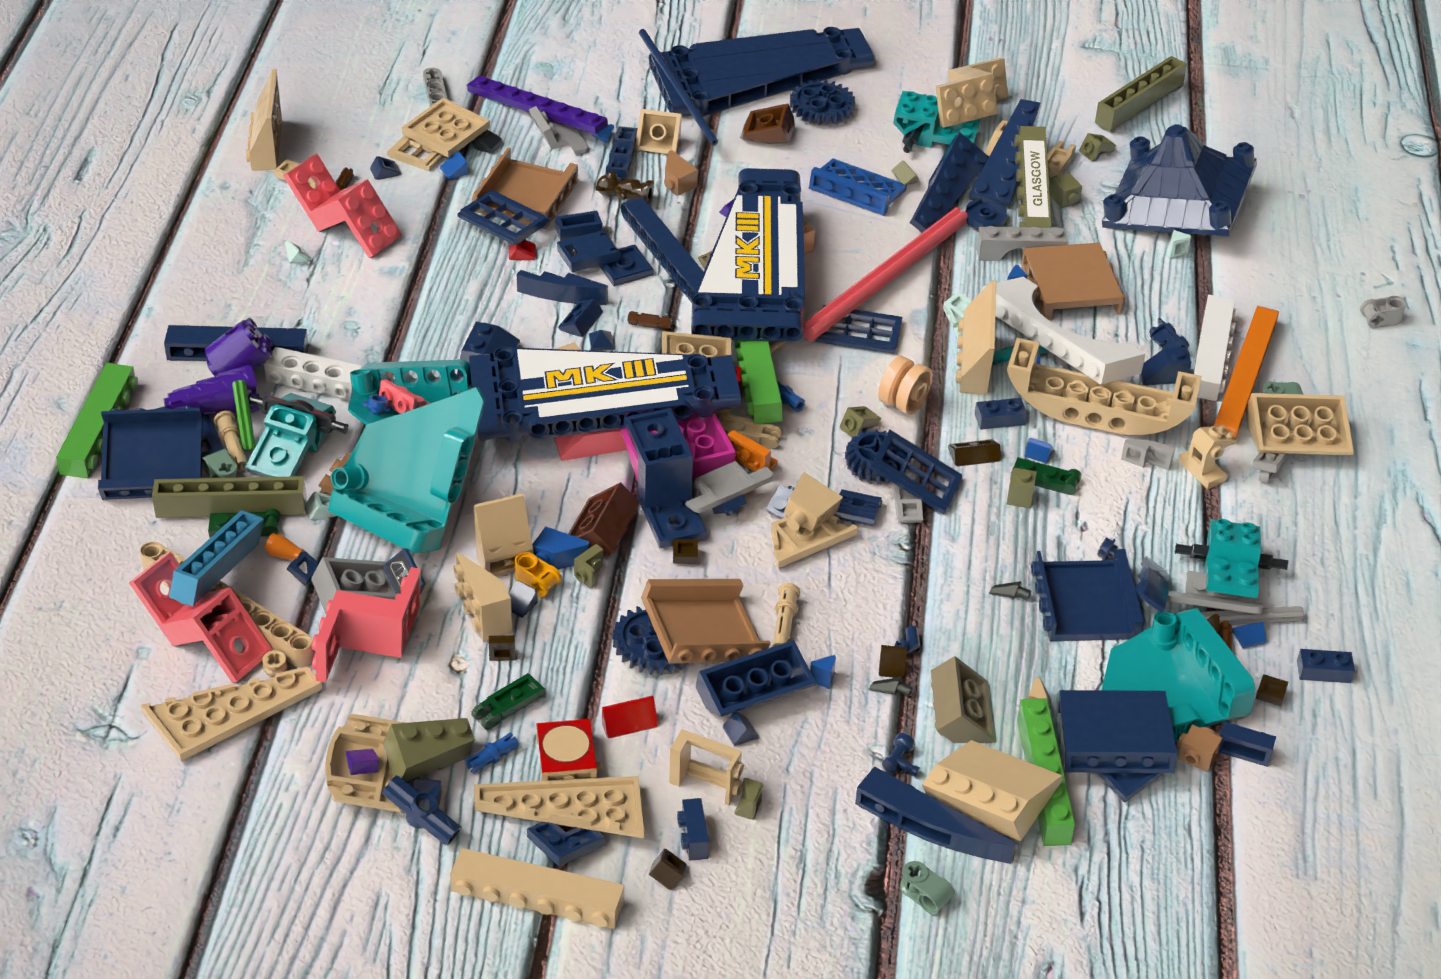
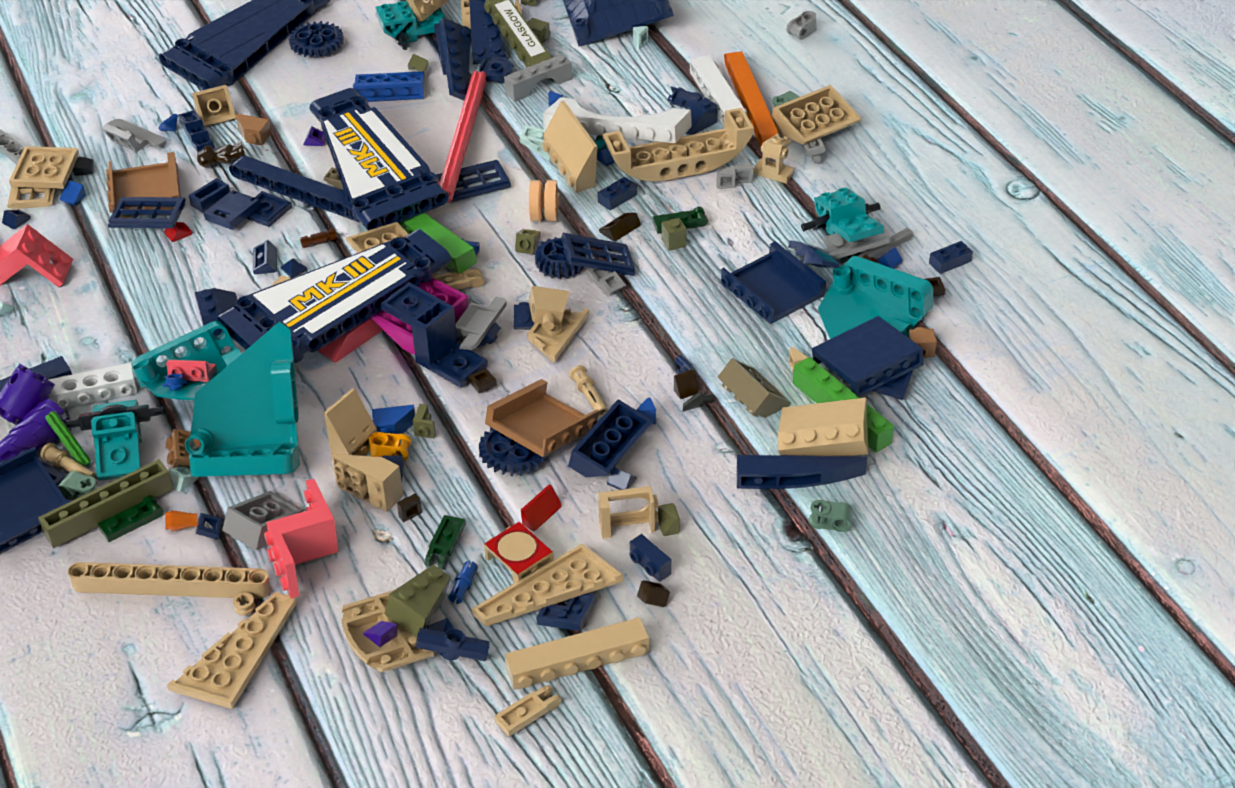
camera: 30 degrees left, 0 degrees up
(214, 619) = (165, 596): coral bracket -> none
(216, 558) = (144, 548): dark azure brick -> none
(398, 568) = (290, 492): slope -> none
(443, 918) = (527, 710): none -> tan hinge
(526, 100) = (95, 123): dark purple plate -> none
(561, 289) = (233, 244): dark blue slope -> none
(606, 518) = (406, 383): copper slope -> none
(678, 87) = (205, 68): dark blue piece -> none
(751, 453) = (477, 292): orange bracket -> none
(769, 125) = (290, 69): reddish brown slope -> none
(858, 507) = (579, 296): dark blue piece -> none
(903, 745) = (738, 433): dark blue piece -> none
(1010, 590) = (720, 303): pearl dark grey bar -> none
(1039, 450) = (662, 205): blue slope -> none
(1072, 277) = (591, 84): medium nougat panel -> none
(1107, 548) = (759, 247): dark blue plate -> none
(1246, 744) = (948, 326): dark blue piece -> none

